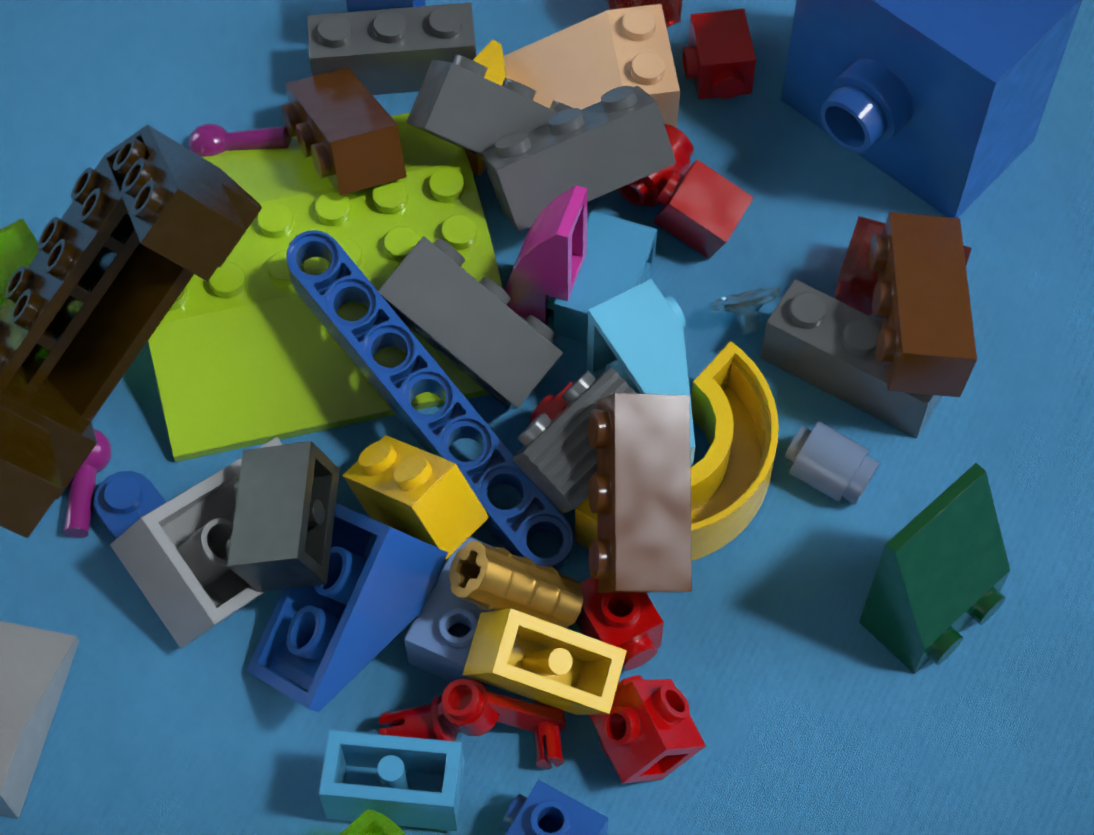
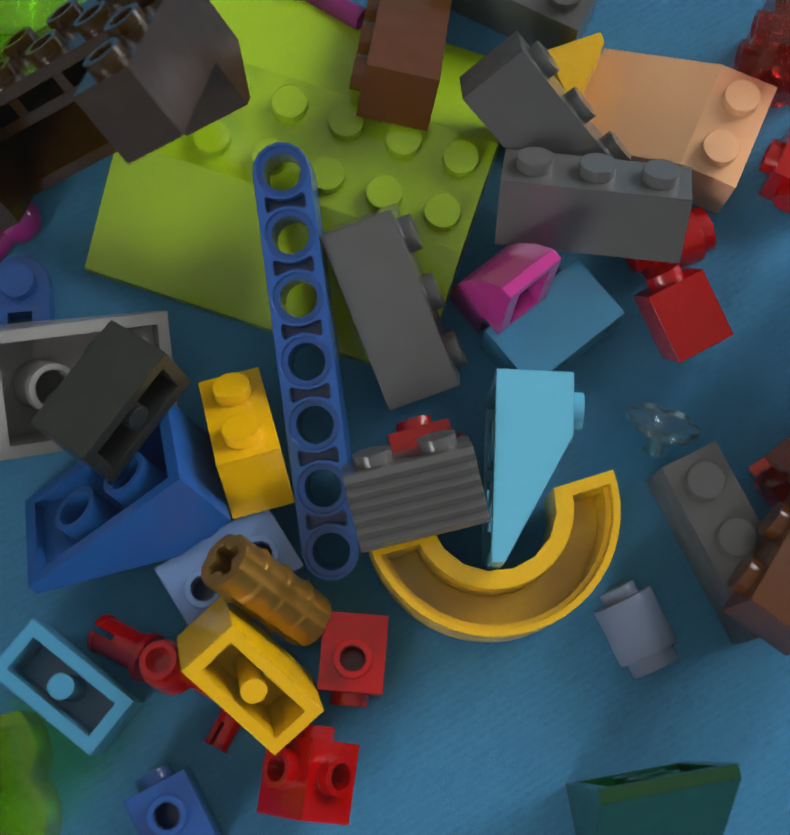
camera: 25 degrees right, 15 degrees up
(641, 494) = (422, 584): brick -> none

